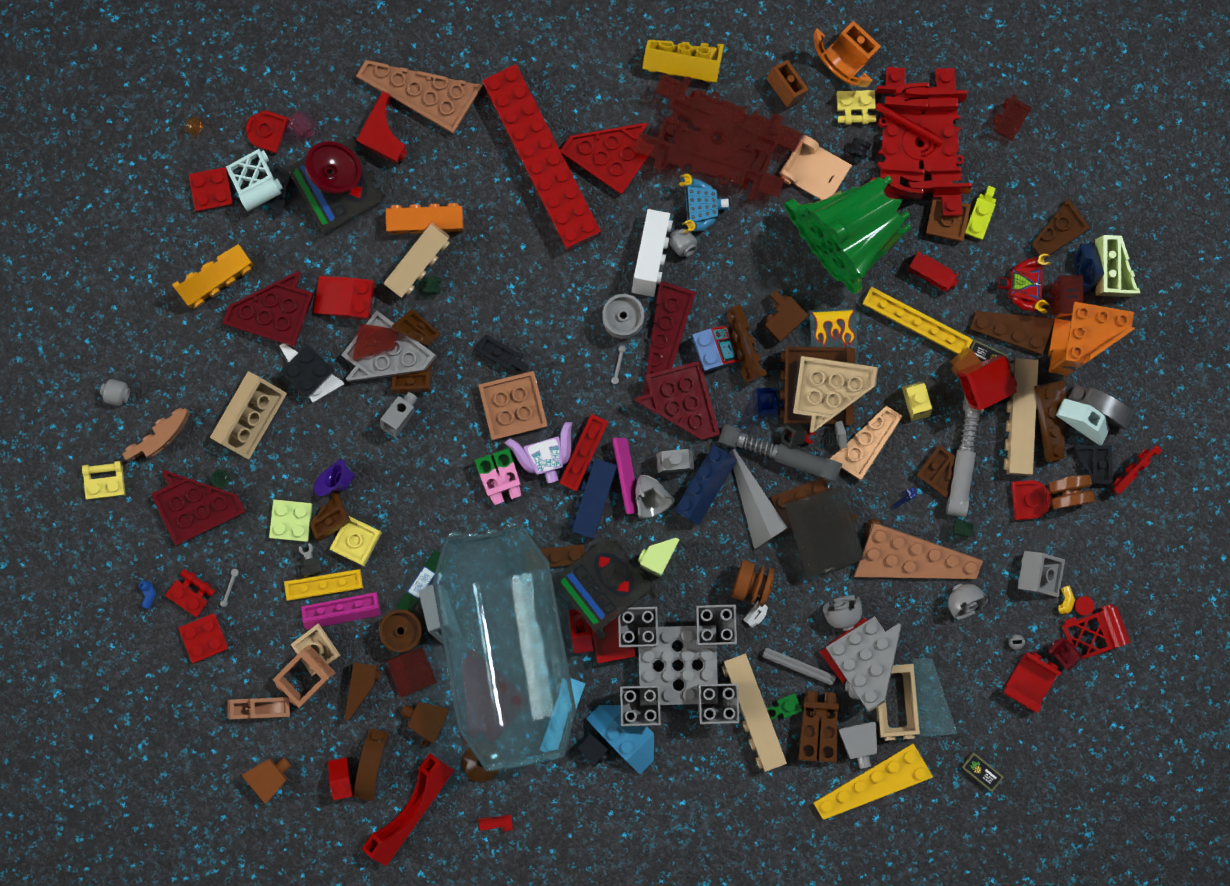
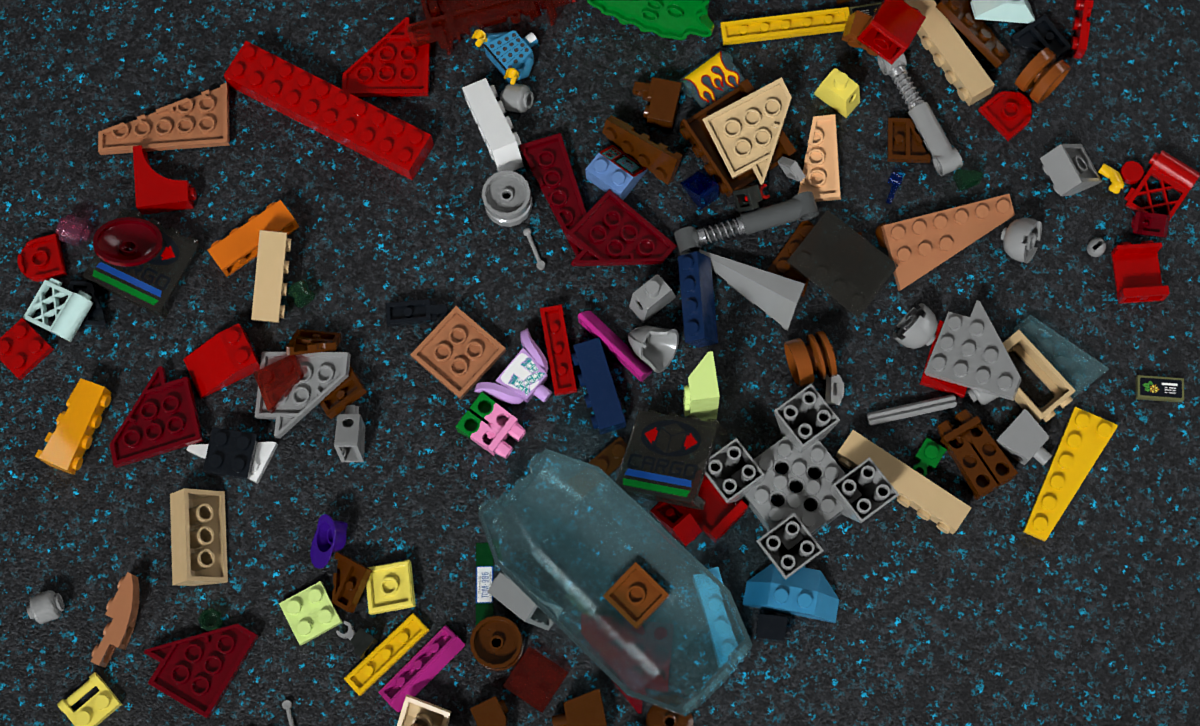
camera: 30 degrees left, 10 degrees down
(516, 664) = (636, 595): none -> dark orange plate

